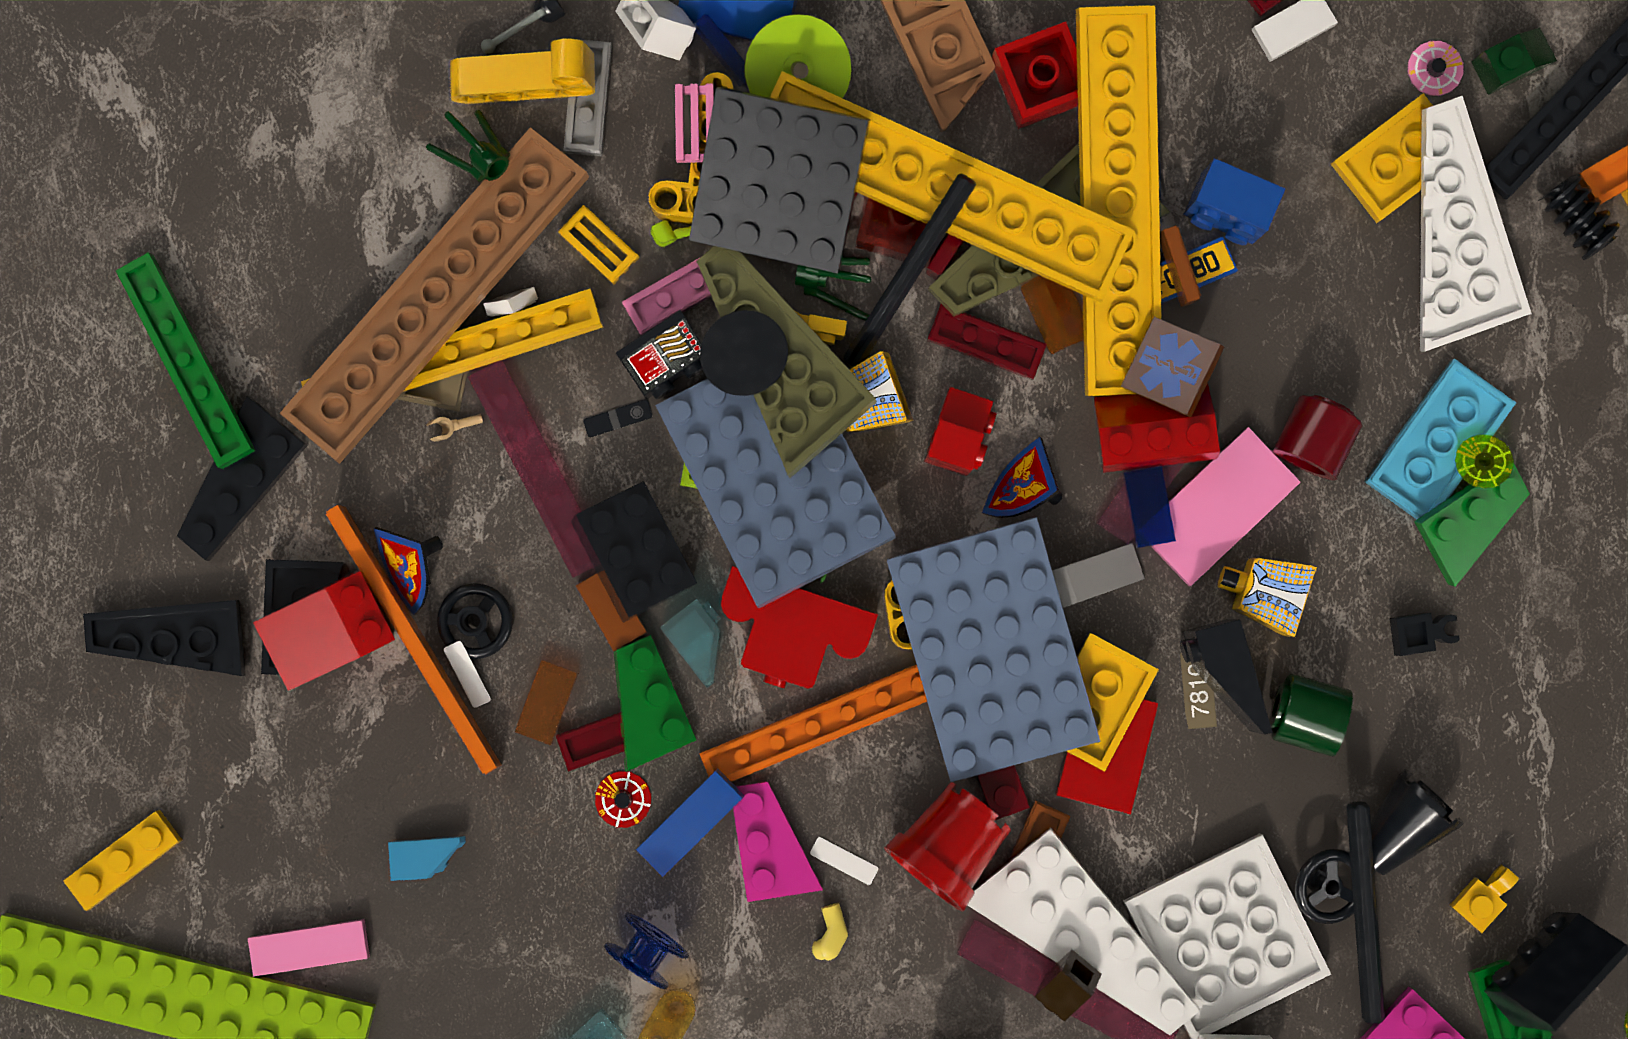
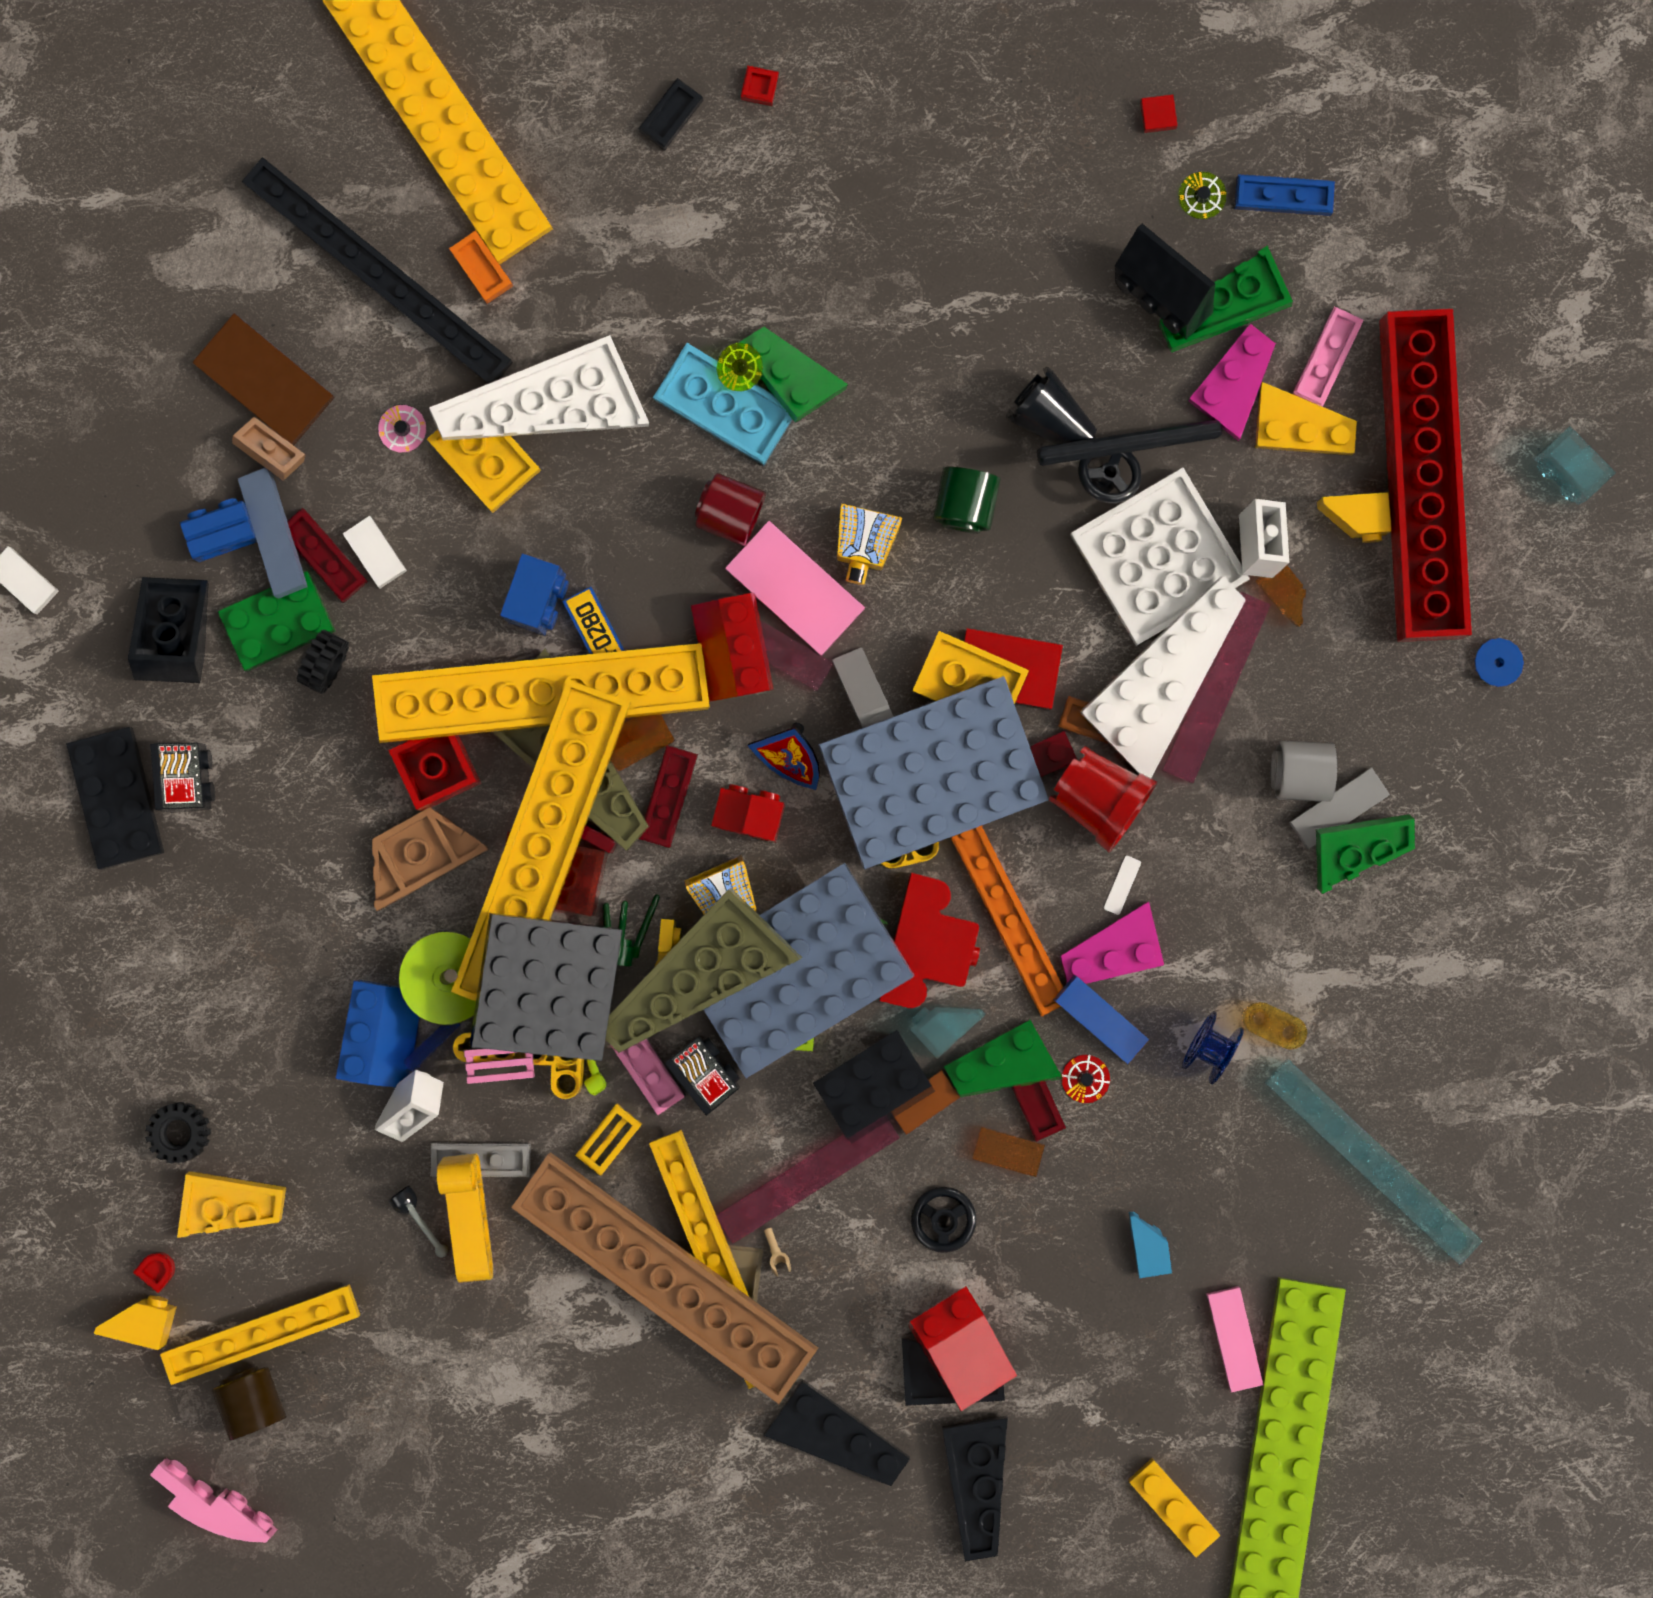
camera: 90 degrees left, 0 degrees up
(185, 360) = (738, 1492): green plate -> none
(407, 565) = (900, 1282): shield -> none
(413, 639) = (963, 1271): orange tile -> none
(467, 674) = (989, 1222): white sticker -> none
(487, 159) = (543, 1241): dark green plant -> none
(511, 302) = (665, 1211): white tile -> none
(617, 418) = (758, 1110): black sticker -> none
(744, 353) = (696, 1005): black sticker -> none
(835, 935) = (1187, 888): light yellow arm -> none
(910, 269) = (615, 868): black axle -> none
(1068, 985) = (1211, 688): dark brown brick -> none
(1149, 507) = (800, 648): clear blue tile -> none
(1172, 366) = (680, 637): reddish brown tile -> none
(1179, 266) = (592, 637): dark orange tile -> none
(1198, 698) = (952, 594): dark tan sticker -> none
(1225, 663) = (927, 576): black slope -> none
(1418, 633) = (889, 413): black plate -> none
(1481, 901) = (1112, 345): yellow plate -> none
(1513, 60) = (391, 362): dark green slope -> none
(1581, 215) = (522, 298): black piece -> none

